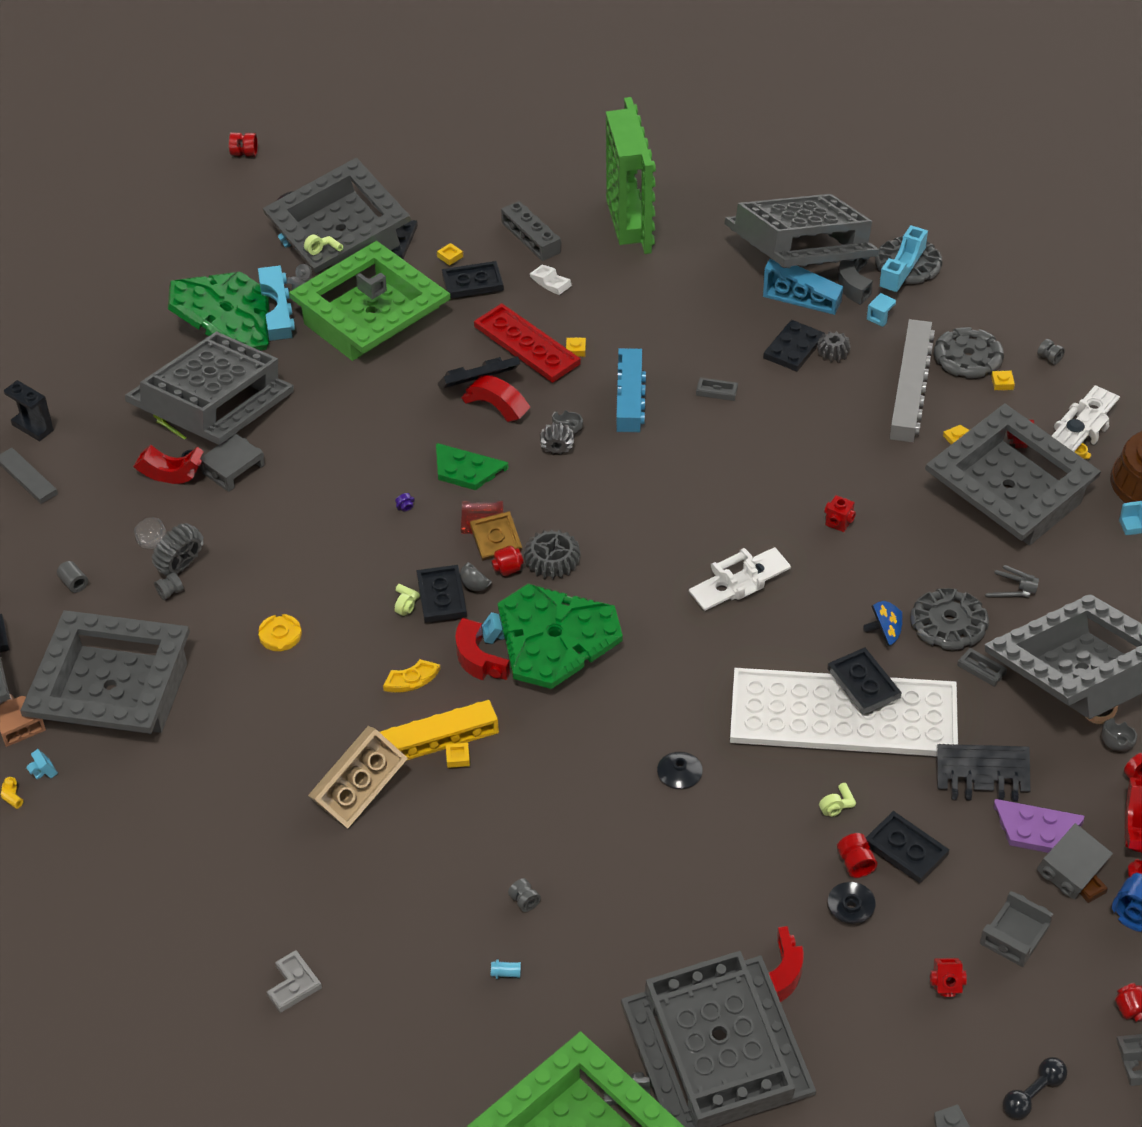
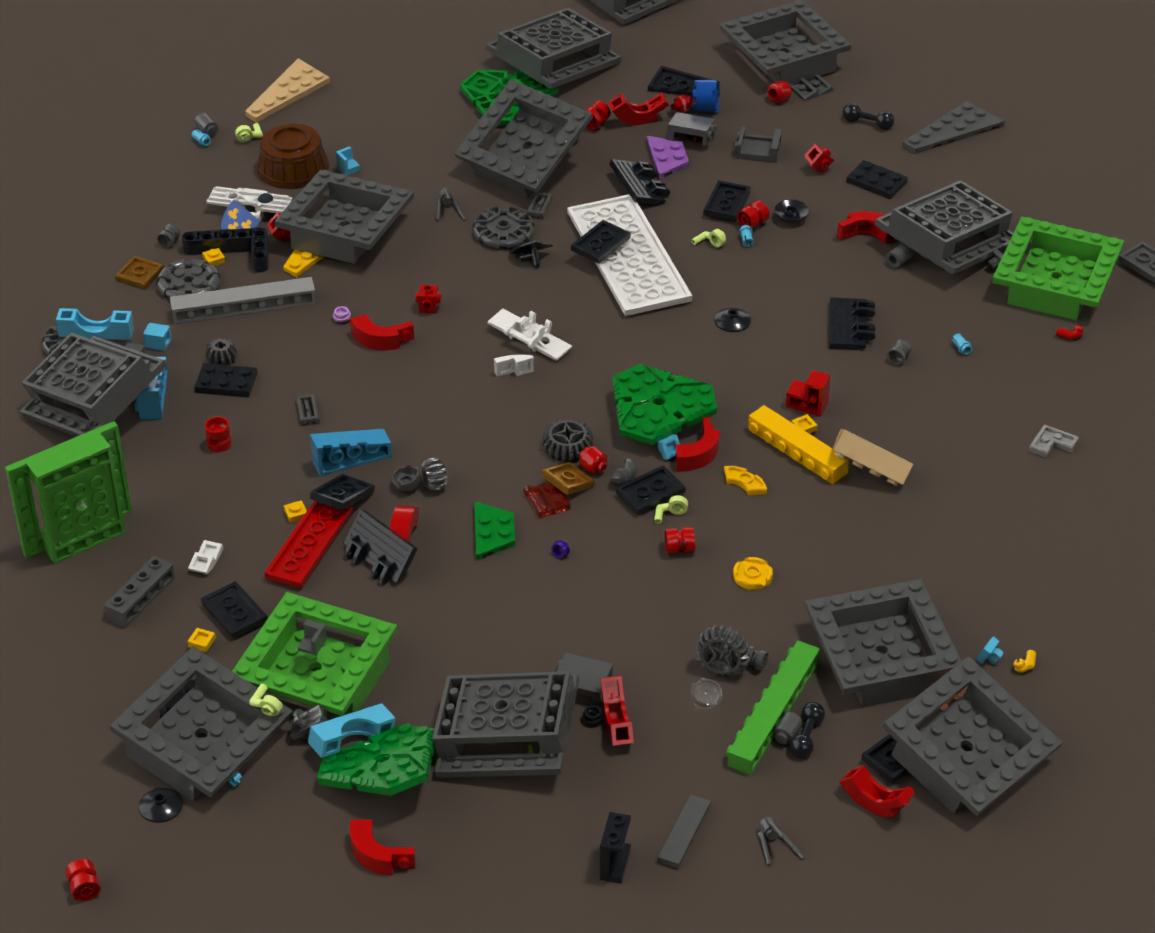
camera: 115 degrees left, 5 degrees down
(47, 579) = (801, 744): none -> black piece
(101, 572) = (775, 701): none -> bright green brick
(145, 291) = (376, 856): none -> red arch
(351, 585) = (680, 540): none -> red wheel
(459, 1101) = (1073, 334): none -> red arm
(495, 771) = (809, 396): none -> red brick
(571, 371) = (342, 492): none -> black plate
(610, 874) = (849, 323): none -> black hinge
(693, 549) = (514, 363): none -> white slope
(705, 314) = (218, 434): none -> red wheel
(801, 457) = (380, 337): none -> red arch
(824, 838) = (746, 234): none -> medium azure pin
(853, 447) = (341, 314): none -> lavender plate
(887, 1037) = (876, 179): none -> black plate
(981, 406) = (231, 241): none -> black beam
(1002, 324) = (139, 272): none -> pearl gold tile
(1047, 400) = (238, 217): none -> blue shield

